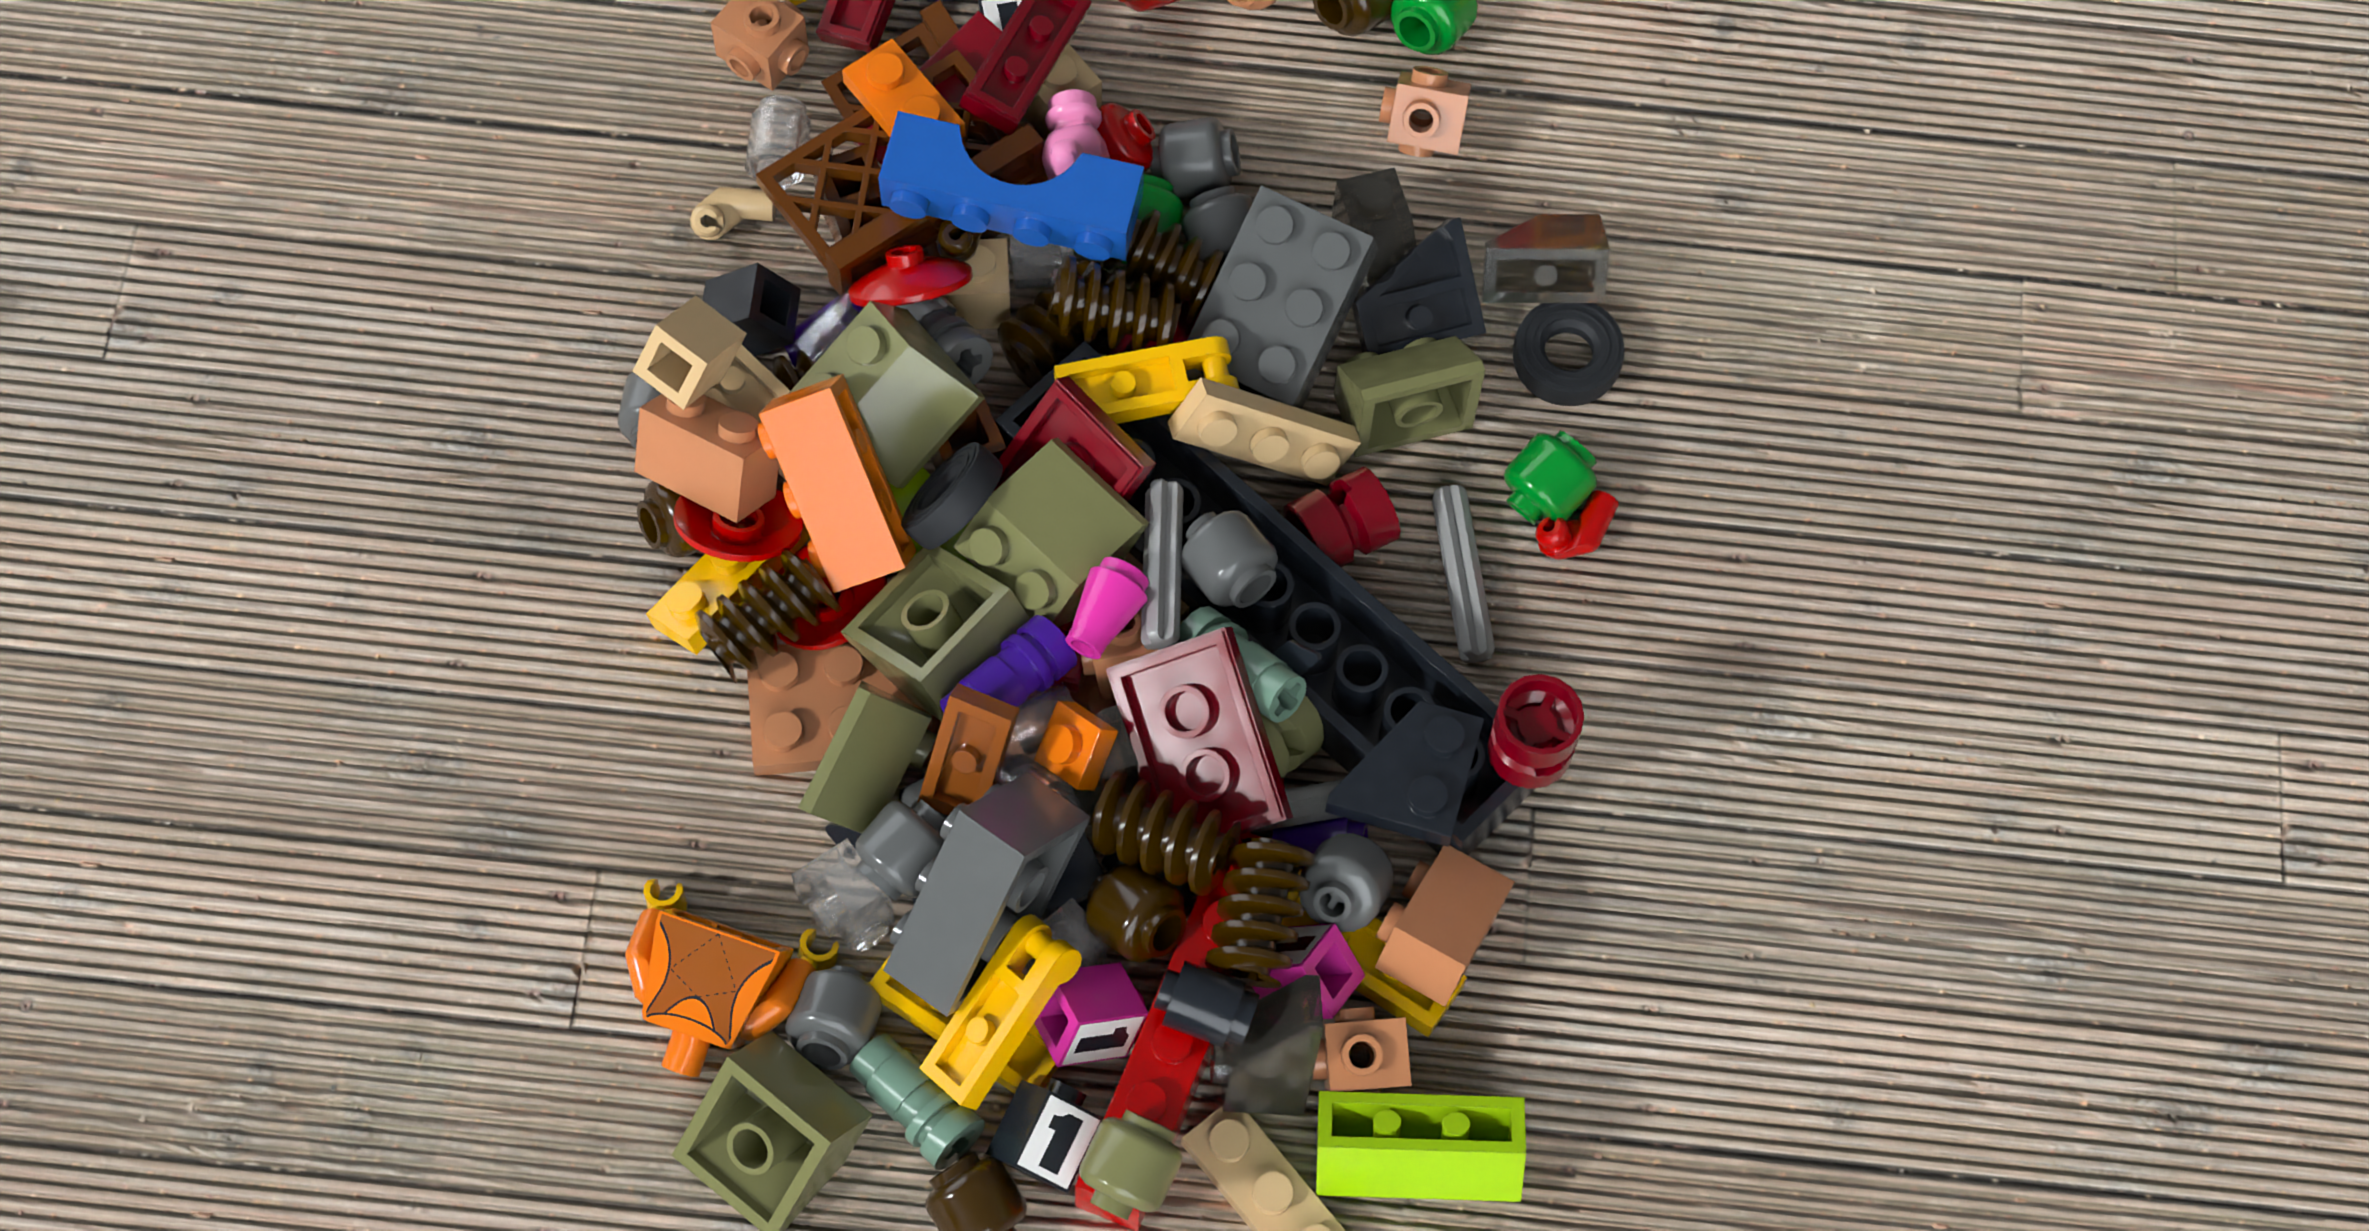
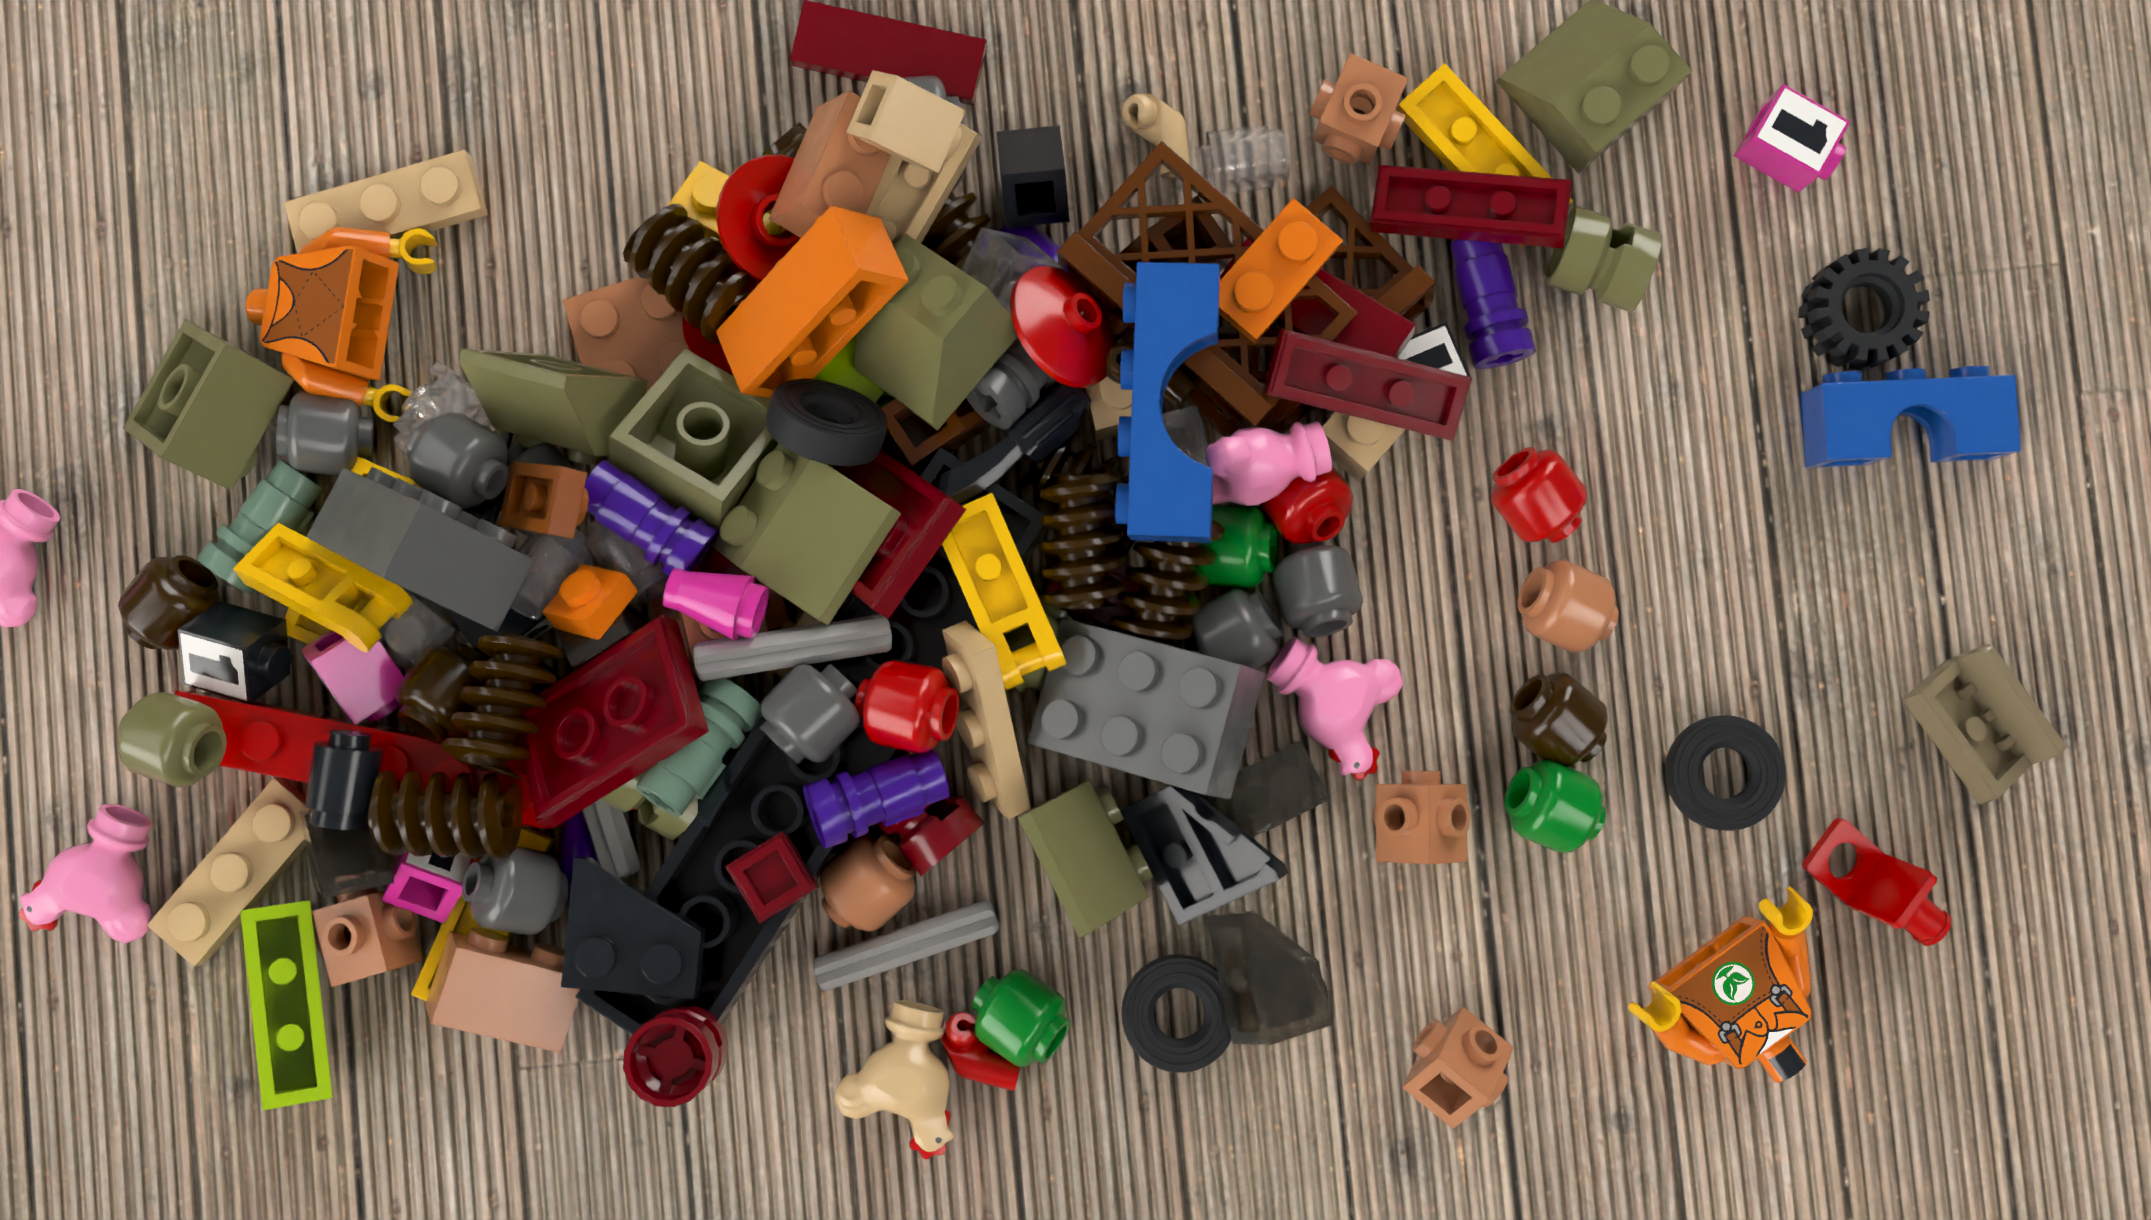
camera: 85 degrees right, 20 degrees up
(578, 435) = (857, 42): none -> dark red tile
(605, 915) = (408, 198): none -> tan plate
(1007, 338) = (1034, 434): none -> black piece
(1241, 473) = (907, 706): none -> red head
(1306, 162) = (1336, 701): none -> bright pink animal
(1322, 536) = (880, 794): none -> dark purple axle
(1378, 634) = (772, 876): none -> dark red tile
(1402, 581) = (867, 883): none -> nougat head
(1591, 590) = (905, 1079): none -> tan animal
(1654, 124) = (1458, 1067): none -> nougat brick

